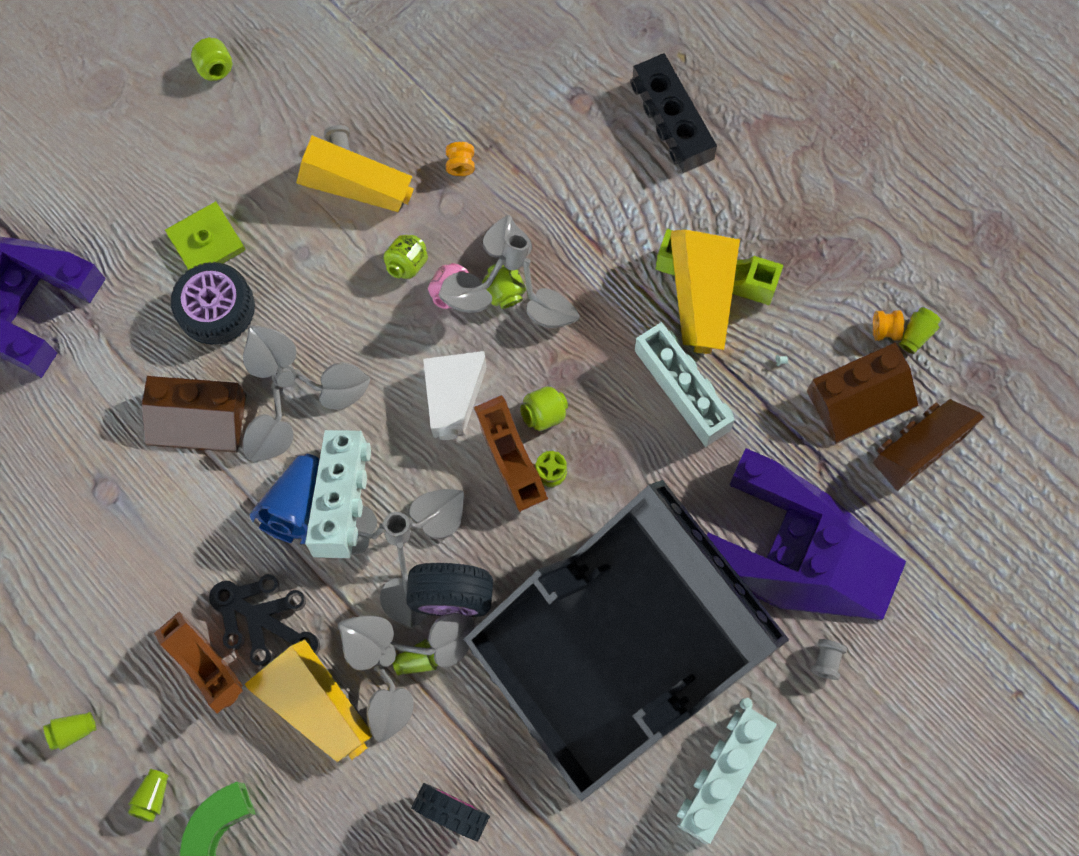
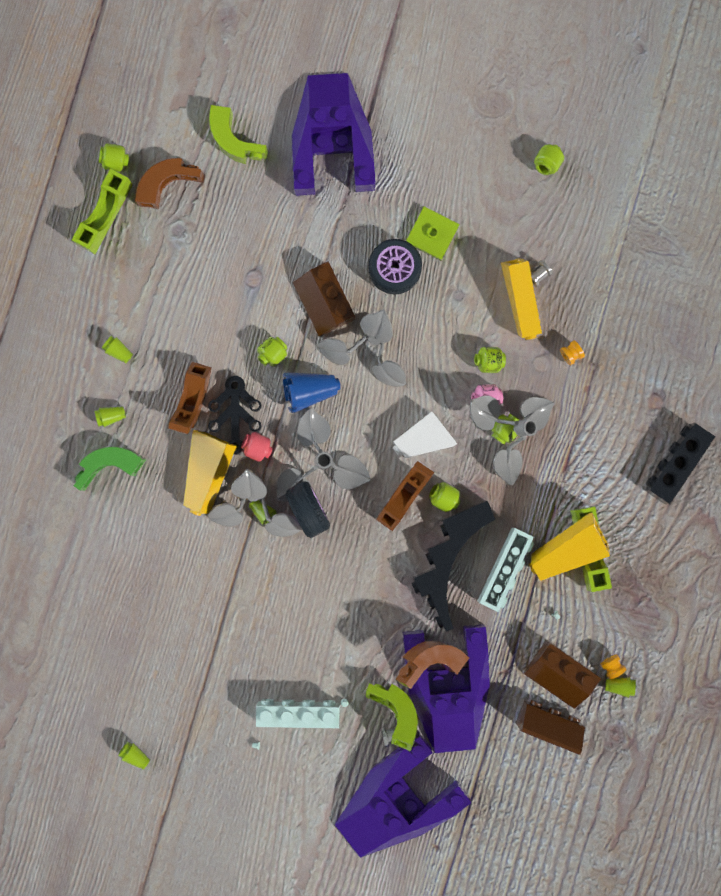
camera: 55 degrees right, 15 degrees up
(213, 519) = (272, 351): none -> lime head
(323, 613) = (256, 446): none -> coral head
(337, 494) = (325, 412): light aqua brick -> none
(450, 812) = (192, 581): black wheel -> none
(551, 462) = (415, 521): lime wheel -> none
(620, 455) = (434, 581): none -> black arch
(624, 639) = (335, 622): black panel -> none
(754, 519) = (427, 654): none -> dark orange arch
(817, 624) = (402, 707): none -> lime arch
(929, 728) = (389, 811): none -> dark purple wedge

